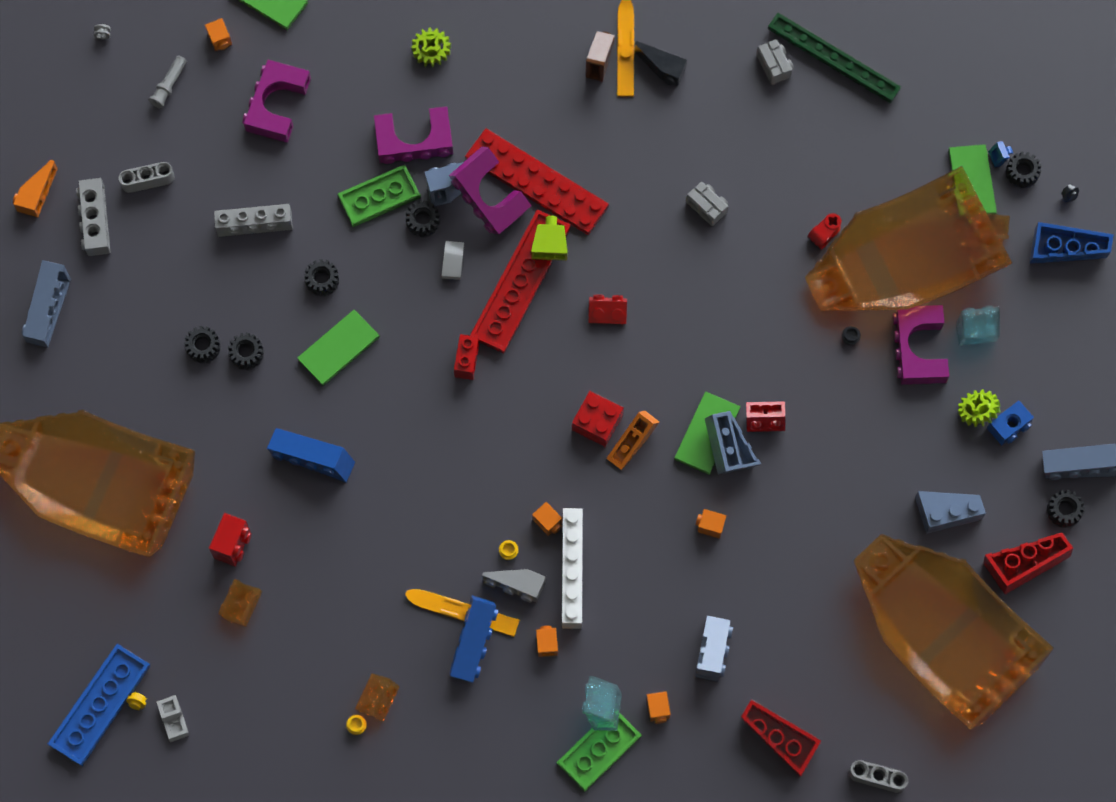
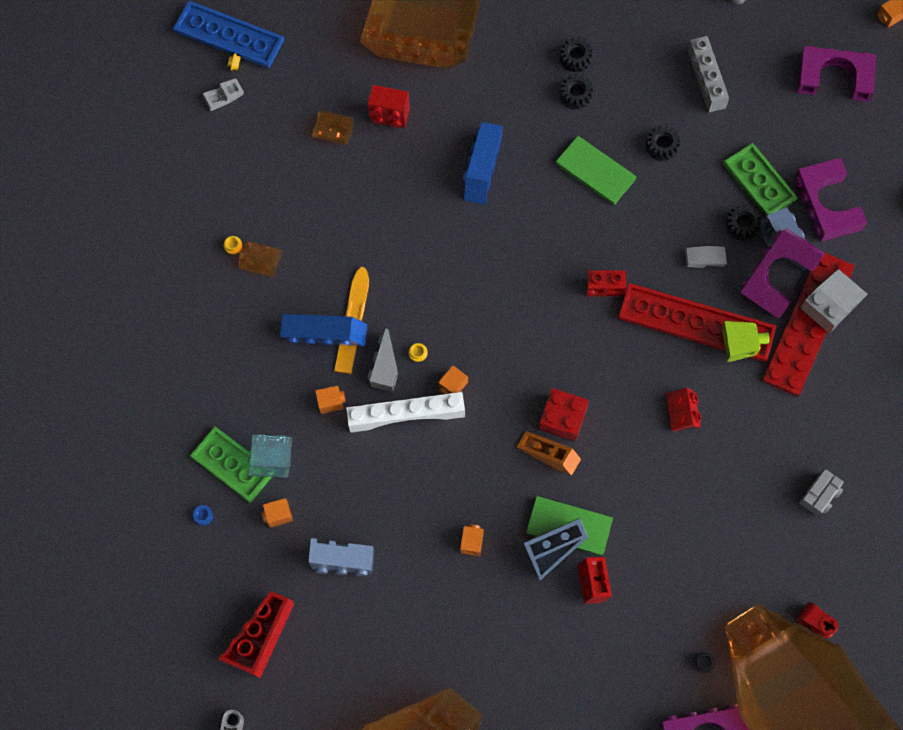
camera: 85 degrees right, 0 degrees up
(523, 152) = (833, 300): none -> light grey slope
(648, 784) = (202, 515): none -> blue tile

